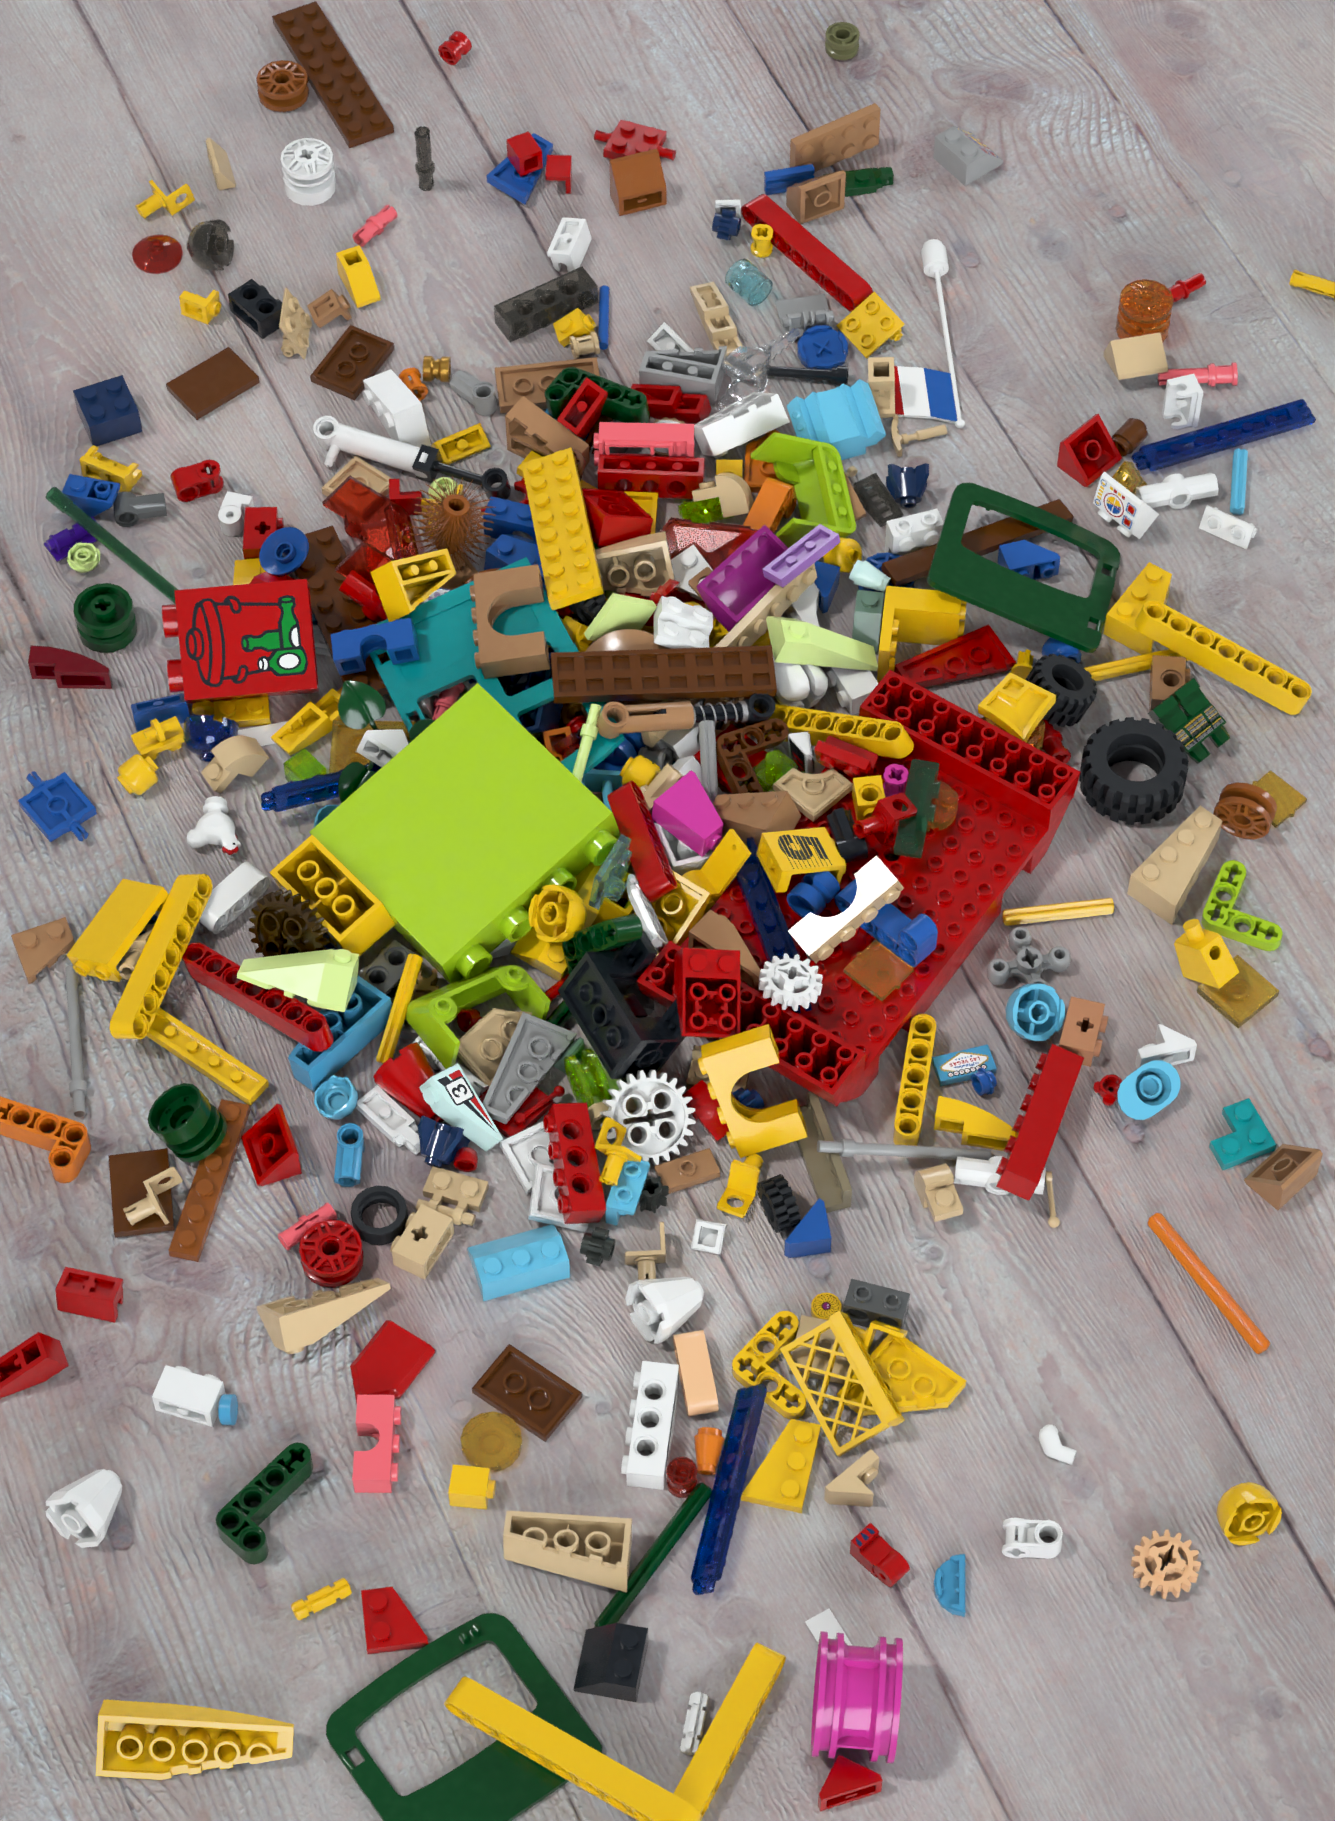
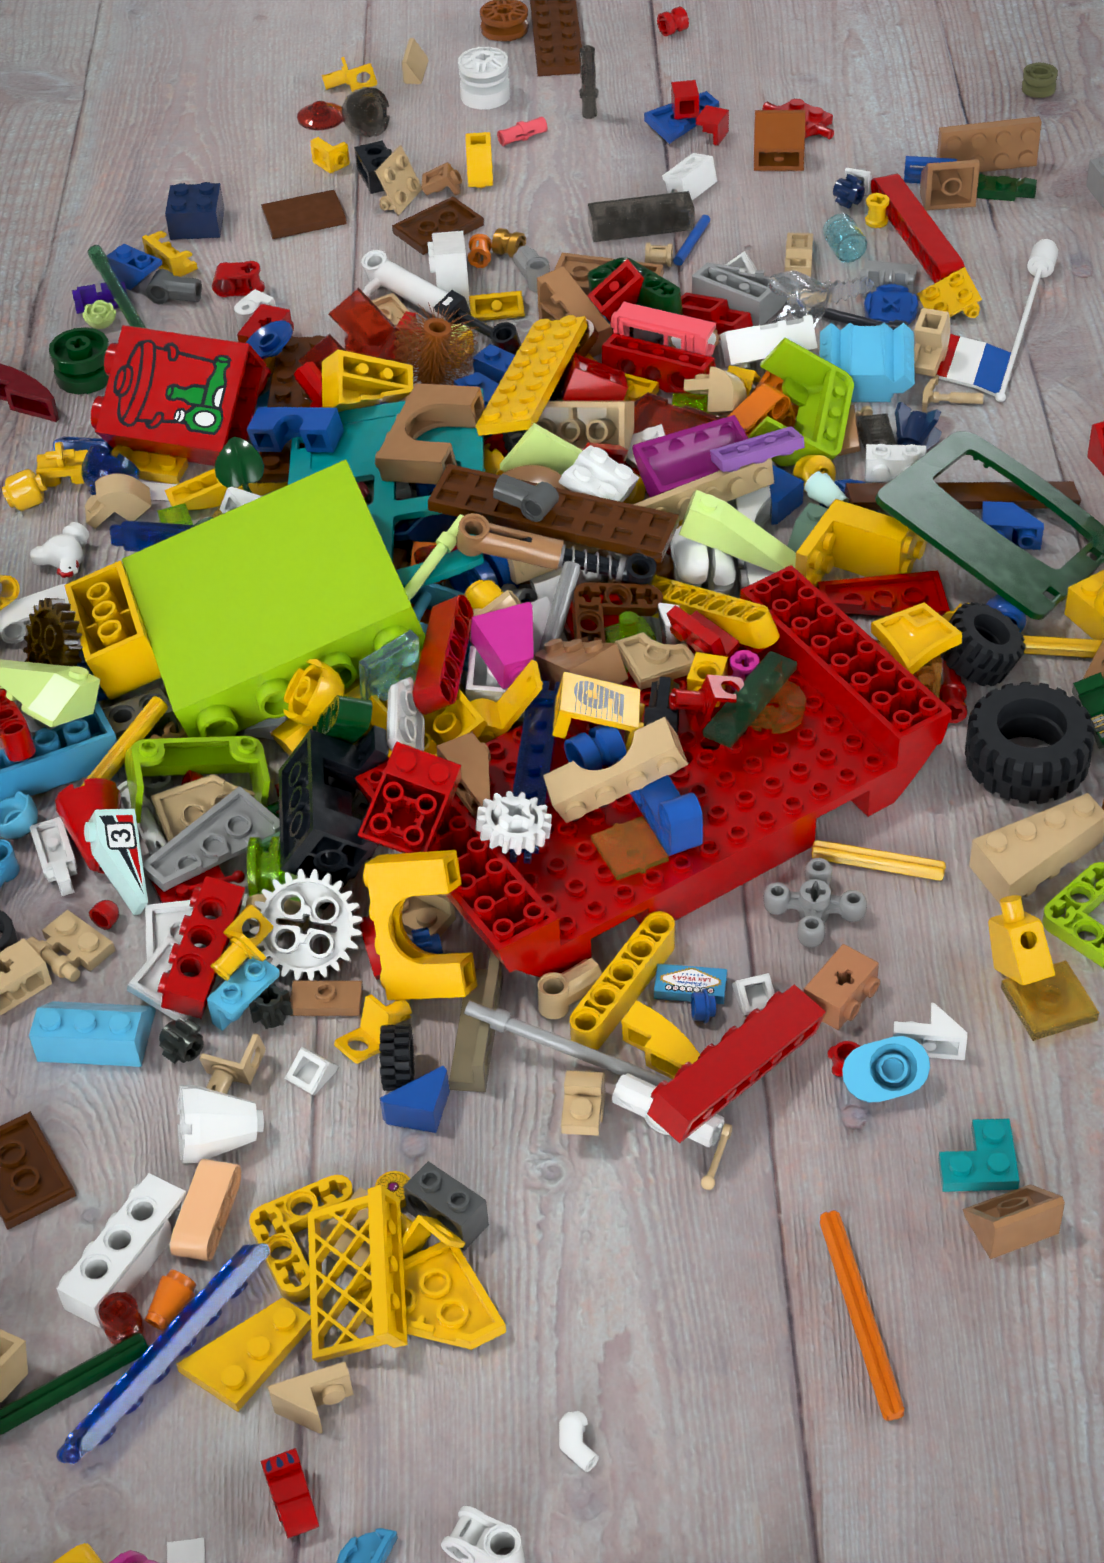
camera: 25 degrees right, 10 degrees down
(439, 1141) = (84, 887): dark blue brick -> none
(573, 324) = (658, 235): yellow bracket -> none
(649, 671) = (531, 499): none -> dark grey piece
(875, 1100) = (560, 990): none -> tan piece
(1016, 1057) = (753, 992): none -> white slope
(1035, 1012) = (793, 947): medium azure cylinder -> none

